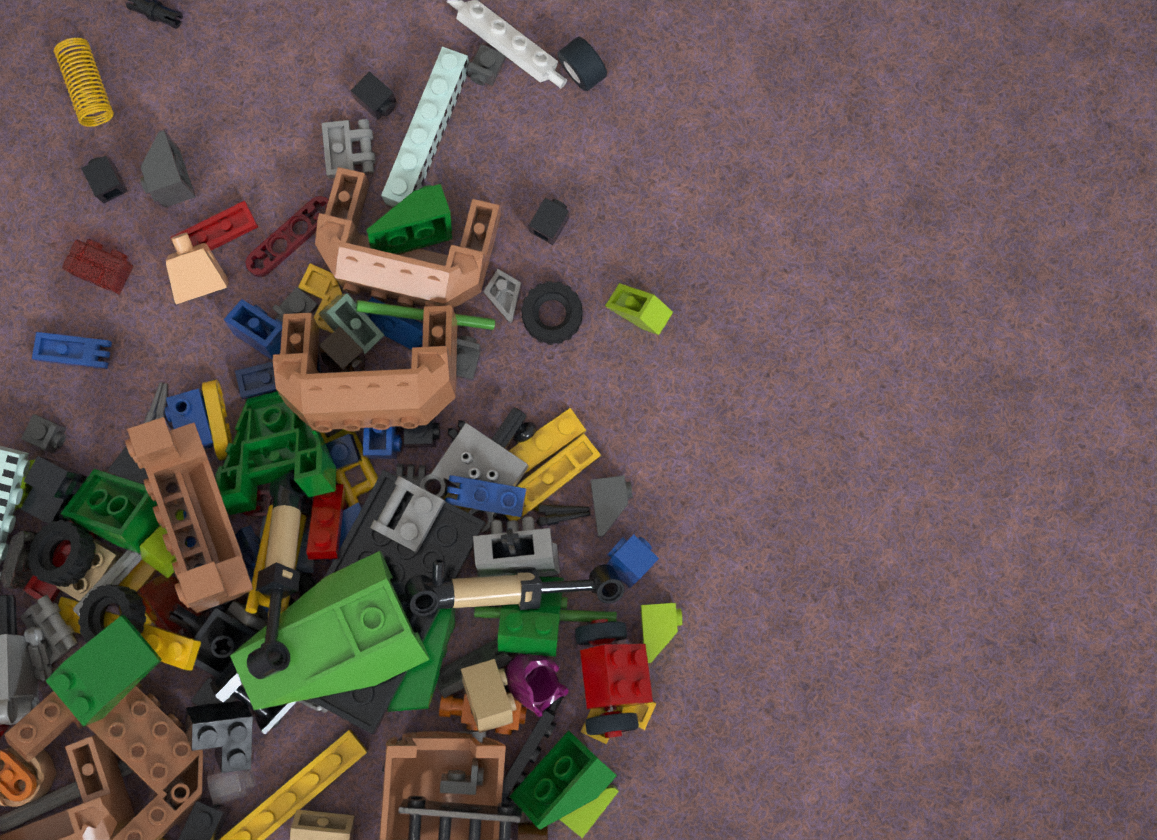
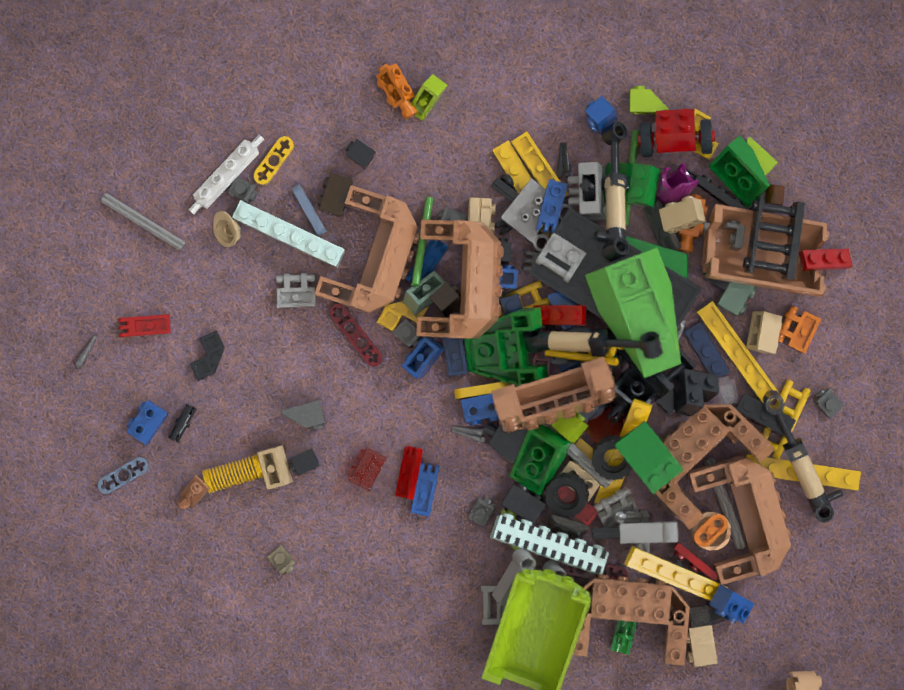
camera: 85 degrees left, 5 degrees up
(53, 28) = (192, 493): none -> nougat hinge
(93, 136) = (274, 467): none -> tan brick
(94, 325) = (409, 472): none -> red hinge
(193, 270) = (377, 400): light nougat torso -> none
(222, 227) = (348, 387): red plate -> none
(248, 619) = (618, 372): light grey tile -> none
(260, 45) = (214, 349): none -> black tile
(292, 749) = (706, 350): none -> dark blue plate
(367, 785) = (734, 298): none -> sand green brick
(374, 96) = (260, 269): black brick -> none
(413, 223) = (356, 238): green slope -> none
(427, 45) = (226, 229): none -> tan piece
(459, 157) = (309, 210): none -> sand blue beam
(473, 397) = (481, 210): none -> tan brick
(487, 187) = (335, 195): none -> dark brown brick
(503, 293) = (408, 189): light grey piece -> none
(510, 100) = (261, 169): none -> yellow beam
(544, 293) = (428, 171): black tyre -> none
(582, 63) = (251, 121): black wheel -> none
(609, 501) = (558, 128): dark grey slope -> none
(648, 264) = (397, 89): none -> orange brick

